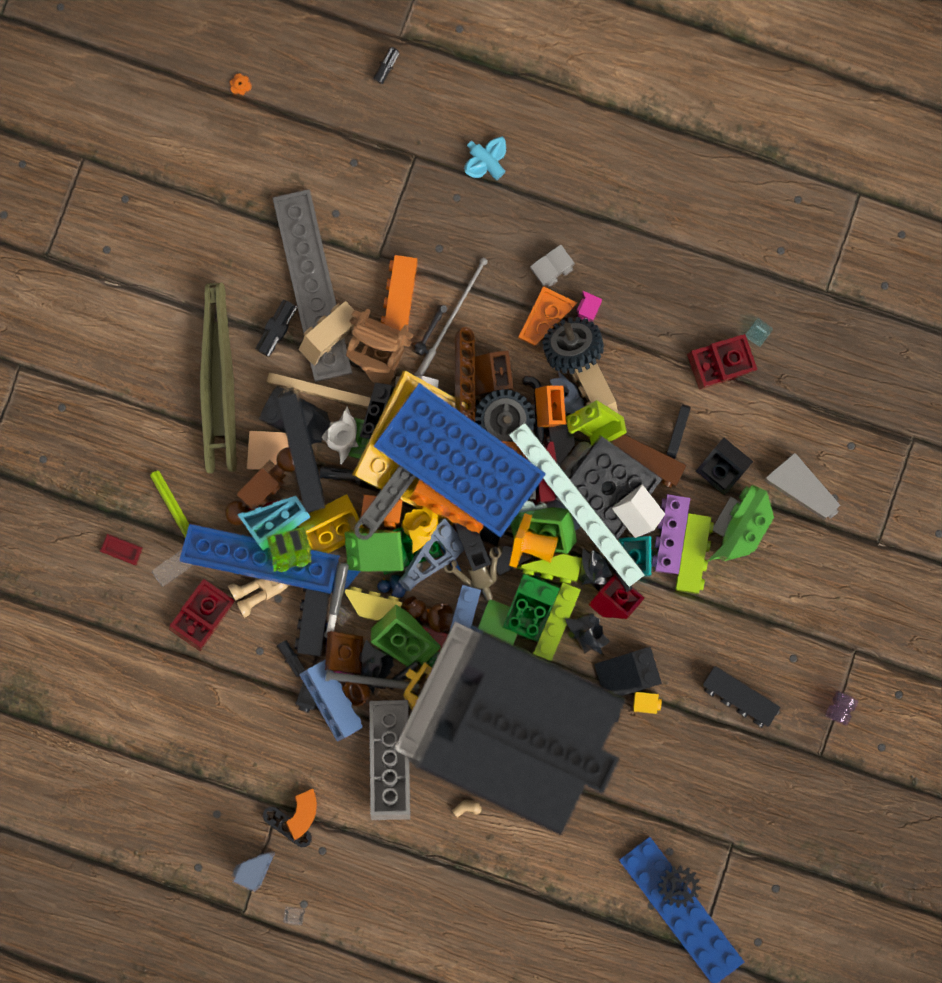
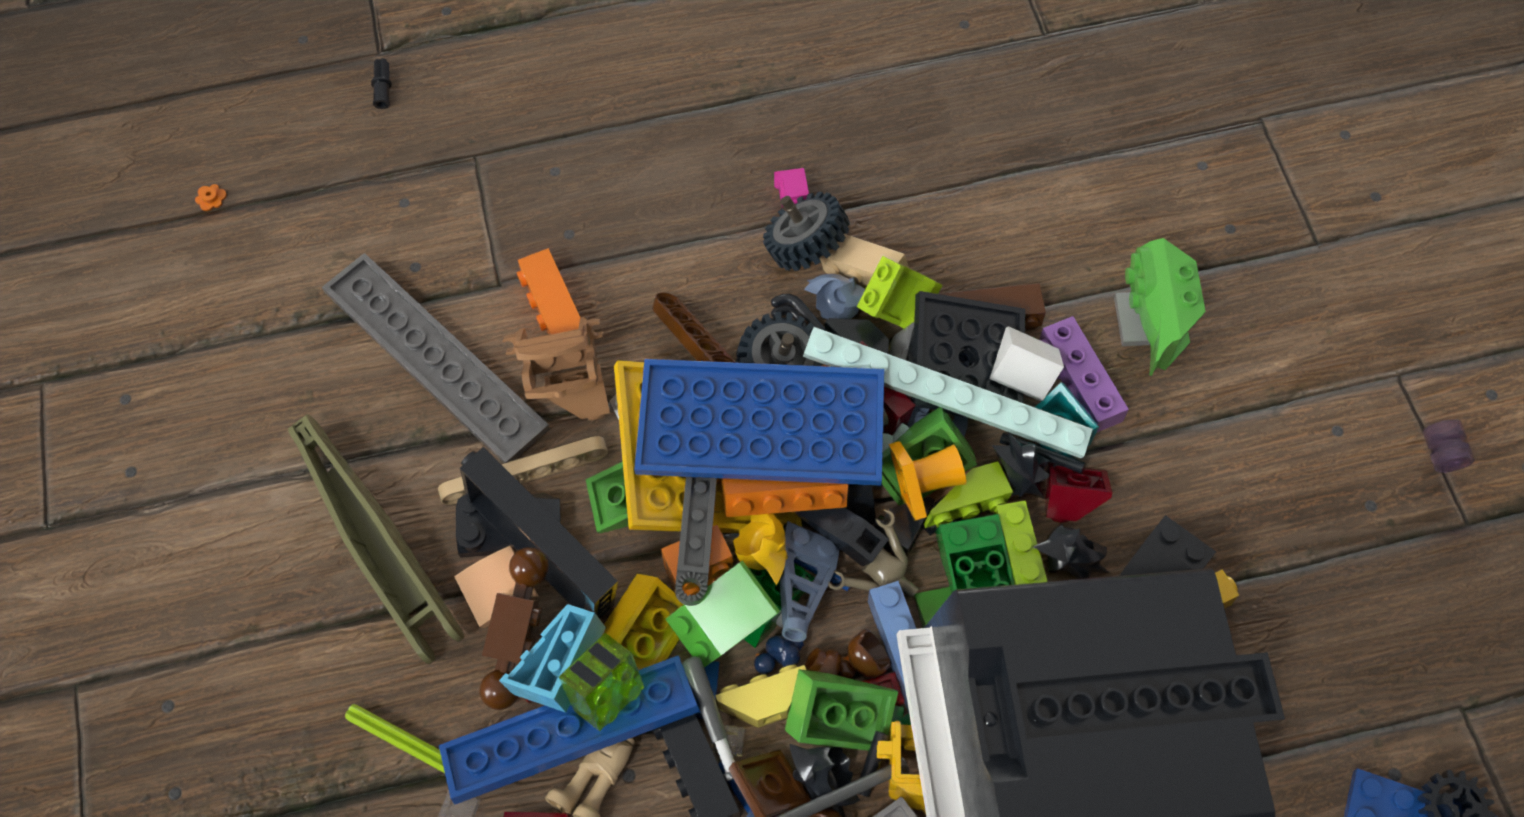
camera: 30 degrees left, 20 degrees down
(276, 328) = (415, 431): black piece -> none
(327, 332) = (485, 389): tan wedge -> none
(340, 474) = (638, 544): black pin -> none
(342, 435) = (583, 503): white hair -> none
(378, 402) = (606, 433): black slope -> none
(420, 347) = (617, 348): black piece -> none
(431, 353) = (636, 346): light grey piece -> none
(486, 158) = (564, 110): medium azure plant -> none
(492, 373) = (727, 315): reddish brown slope -> none
(547, 311) = (746, 224): orange wing -> none
(550, 406) = (828, 304): orange brick -> none
(552, 266) = (718, 173): light grey brick -> none
(678, 431) = (998, 256): black beam -> none
(693, 554) = (1146, 409): lime brick -> none
(722, 361) = (989, 160): dark red slope -> none
(724, 466) = (1082, 264): black slope -> none
(740, 696) = (1319, 511): black brick -> none
(759, 332) = (1006, 111): clear light blue slope -> none
(802, 486) = (1195, 230): light grey slope -> none

